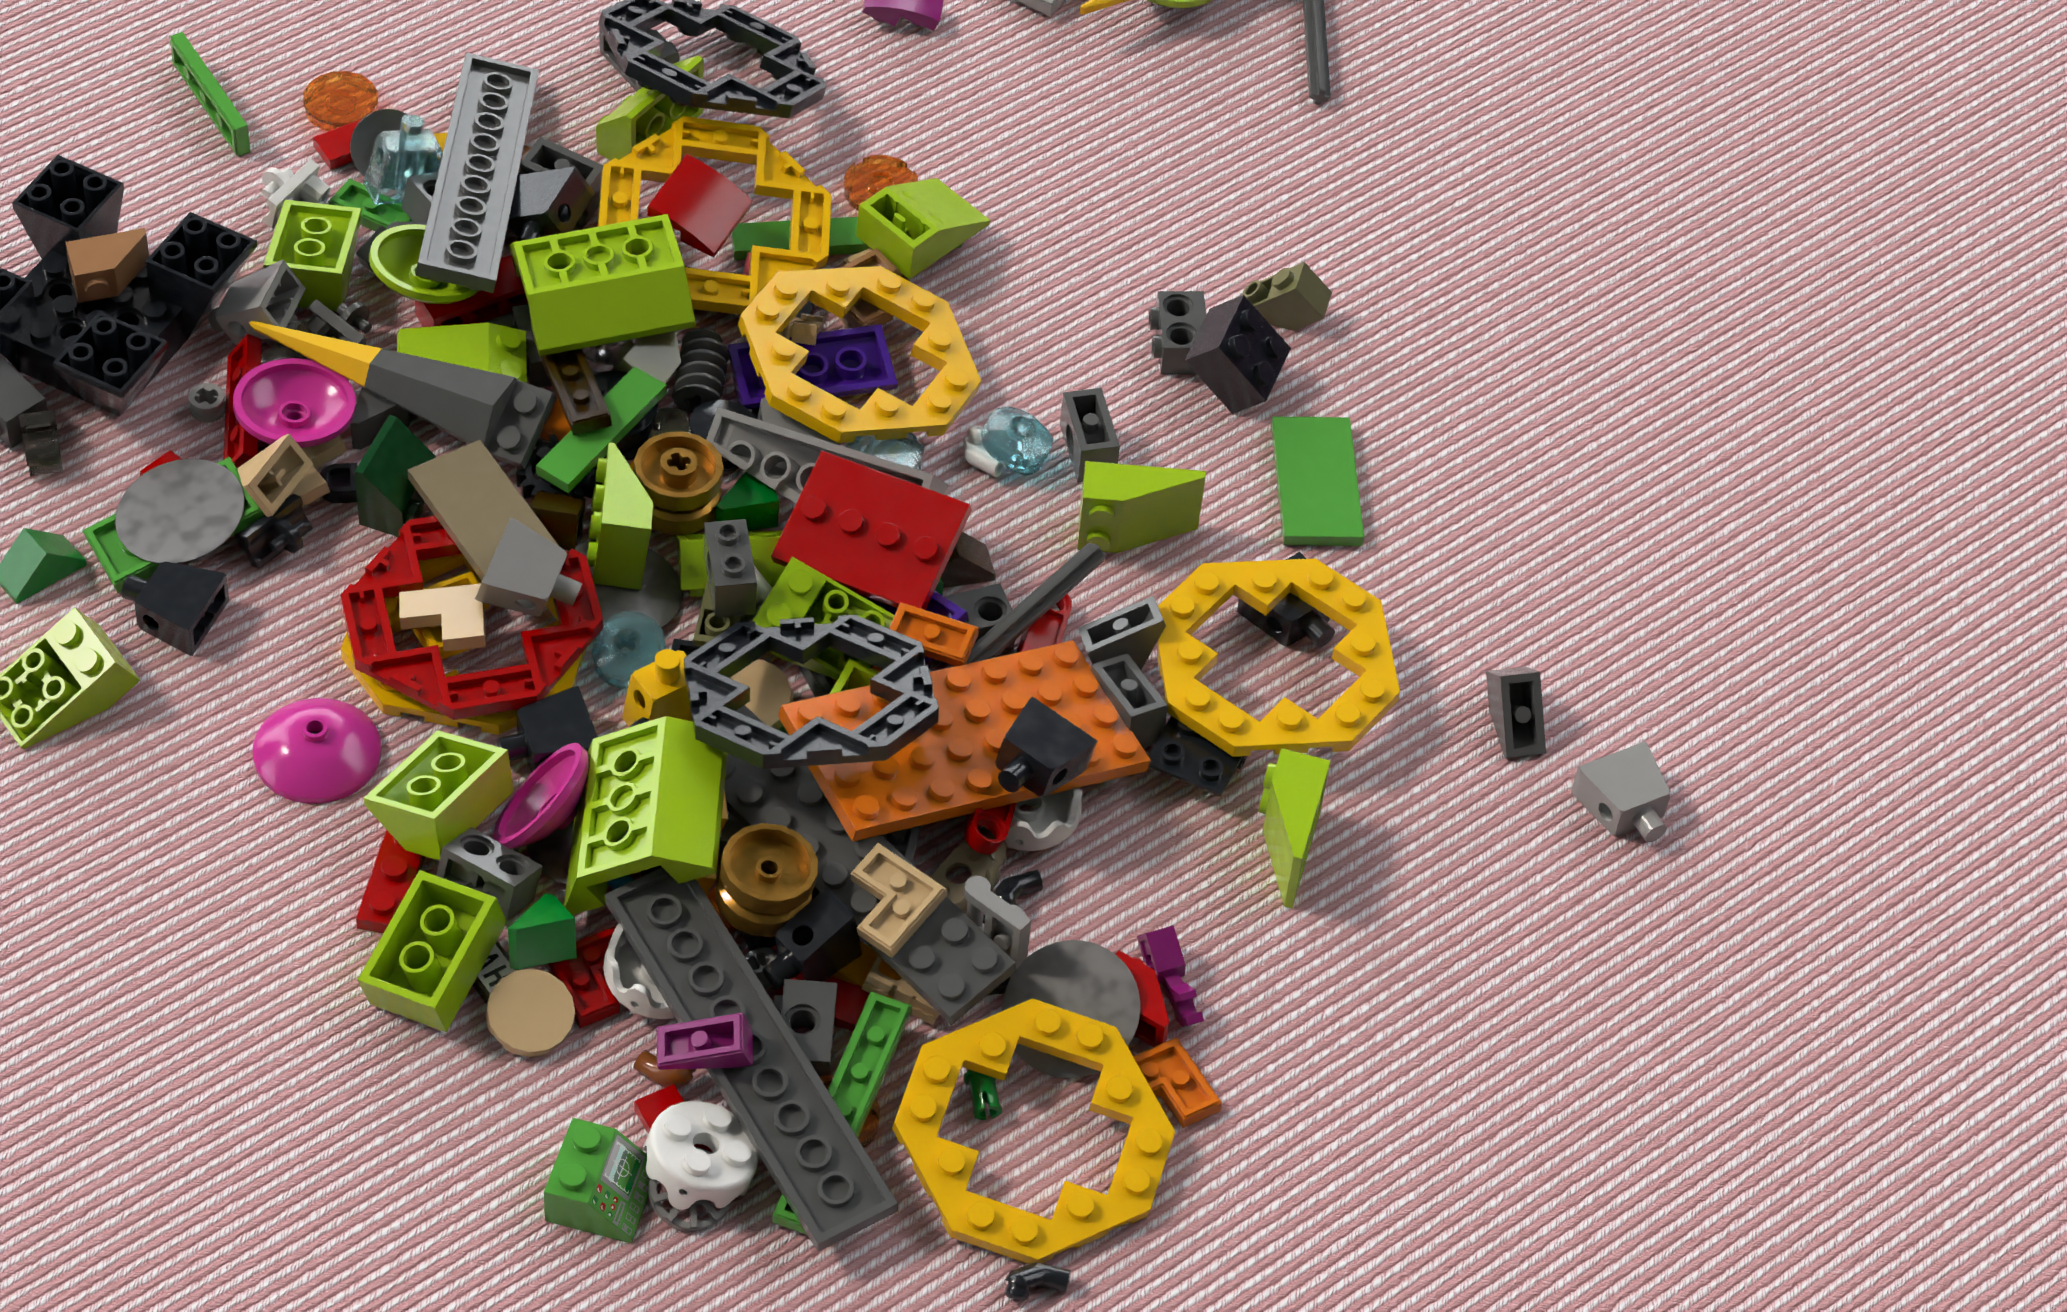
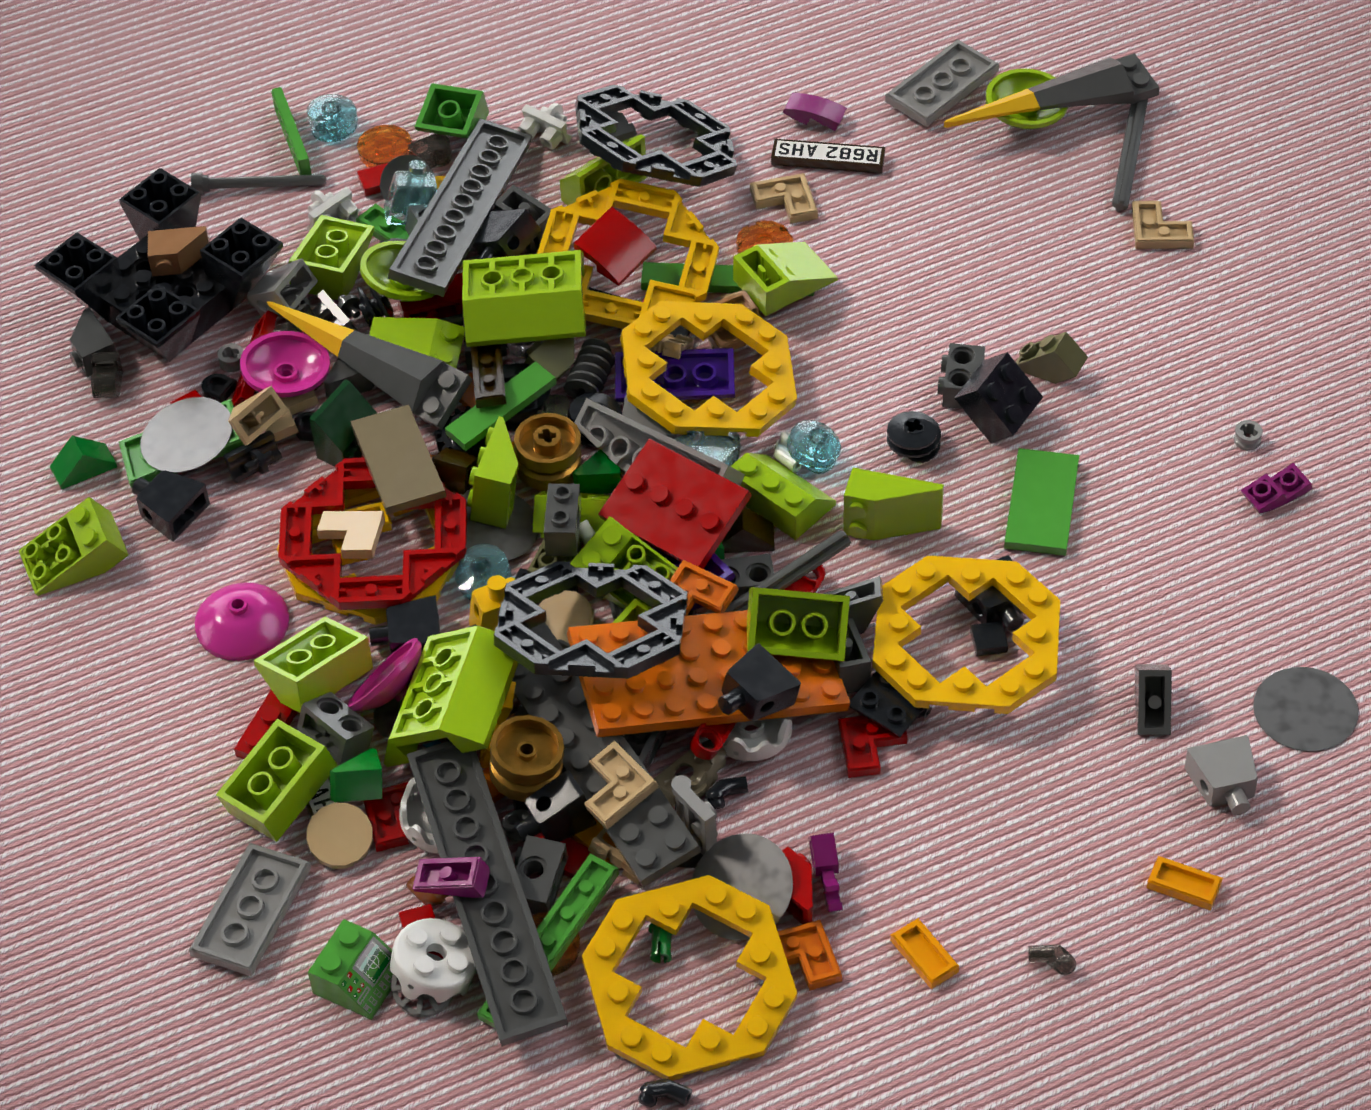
camera: 20 degrees right, 0 degrees up
(180, 162) = (204, 183): none -> dark grey piece
(199, 443) = (218, 387): none -> black tile
(260, 68) = (332, 117): none -> clear light blue piece
(390, 313) = (375, 307): none -> black piece
(411, 96) = (433, 150): none -> clear smoke leg
(426, 45) = (451, 111): none -> bright green slope
(435, 1123) = (250, 909): none -> light grey plate
(526, 573) = (412, 506): light grey torso -> none
(555, 50) = (548, 121): none -> white hips
(895, 114) = (788, 190): none -> tan tile
(933, 64) = (828, 155): none -> tile
(1001, 513) = (781, 494): none -> lime slope
(1068, 665) = (798, 623): none -> lime slope
(1088, 429) = (870, 442): dark grey brick -> none
(1140, 414) = (914, 436): none -> black piece
(1169, 809) = (860, 743): none -> red tile
(1291, 815) = (954, 757): lime slope -> none
(1295, 660) = (989, 638): none -> black tile
(1315, 1062) = (924, 953): none -> light orange tile
(1368, 127) = (1154, 233): none -> tan tile
(1475, 1043) = (1054, 956): none -> clear smoke arm
(1551, 362) = (1249, 427): none -> light grey bush
(1600, 436) = (1273, 492): none -> magenta slope
(1608, 933) = (1184, 883): none -> light orange tile
(1698, 702) = (1305, 709): none -> flat silver sticker

